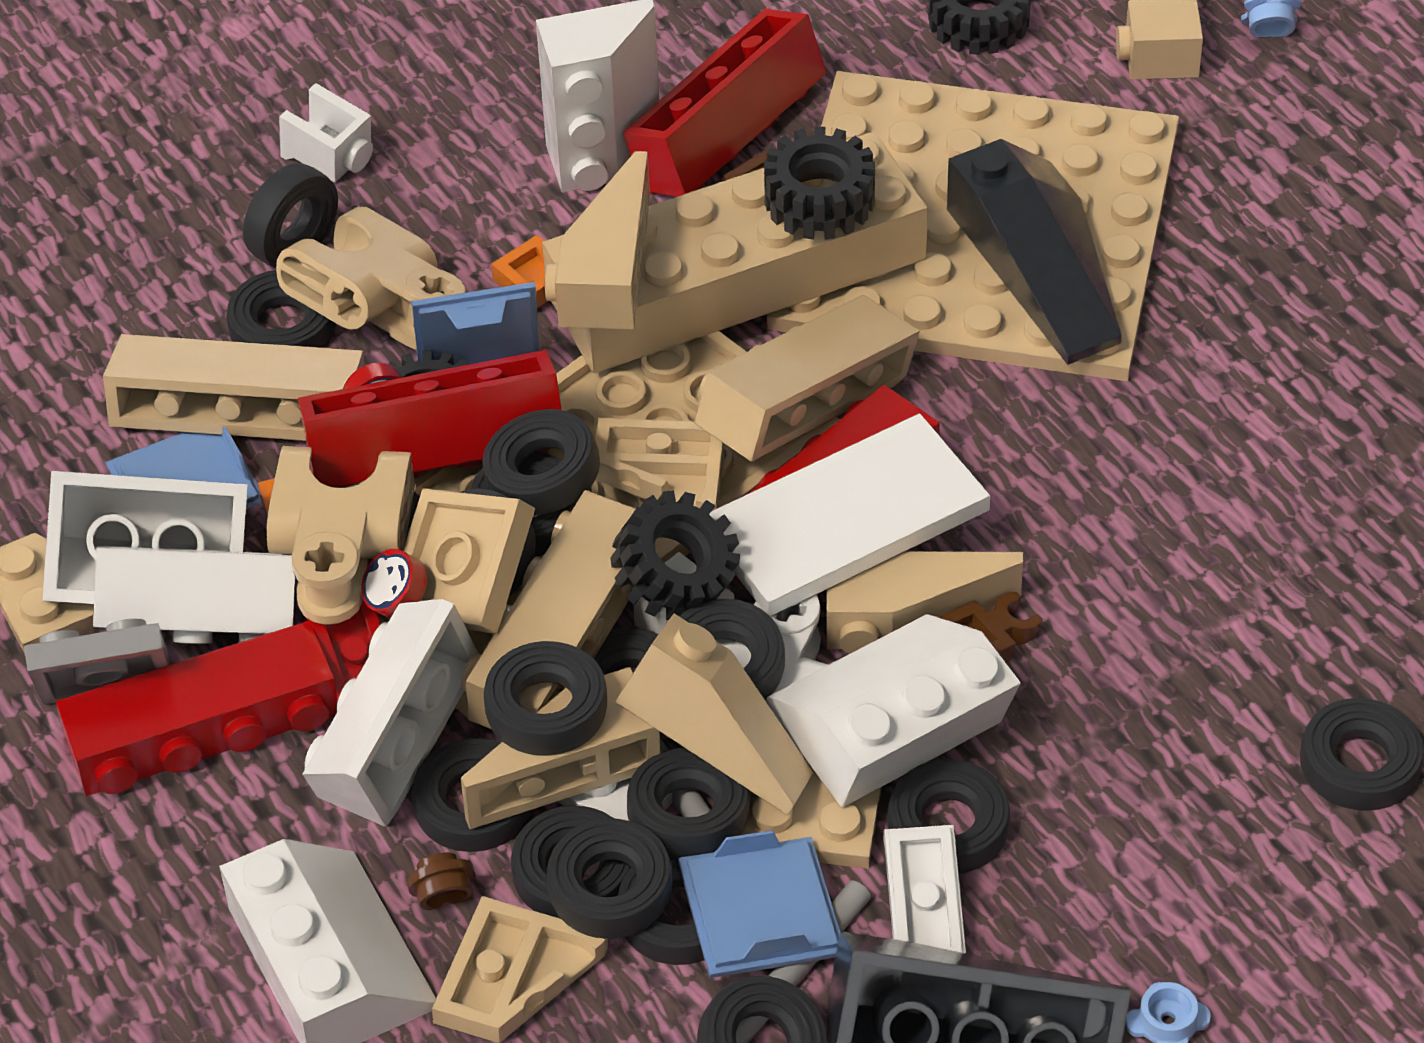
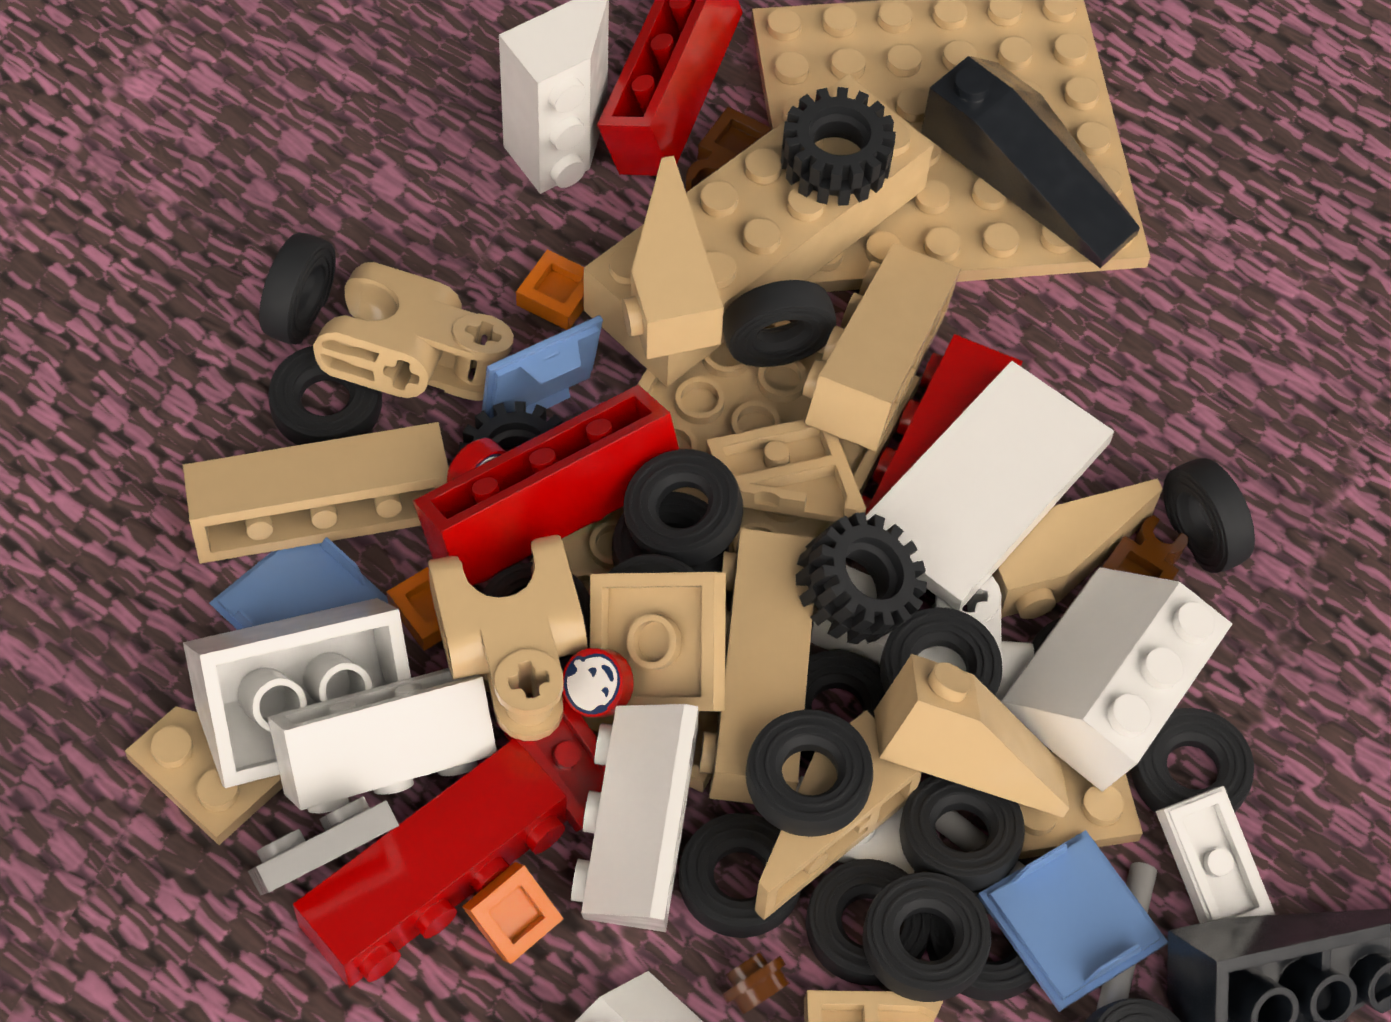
camera: 25 degrees left, 10 degrees up
(250, 767) = (513, 912): none -> orange plate
(333, 138) = (293, 188): white window -> none
(705, 306) = (776, 302): none -> black tyre
(1062, 598) = (1211, 512): none -> black tyre

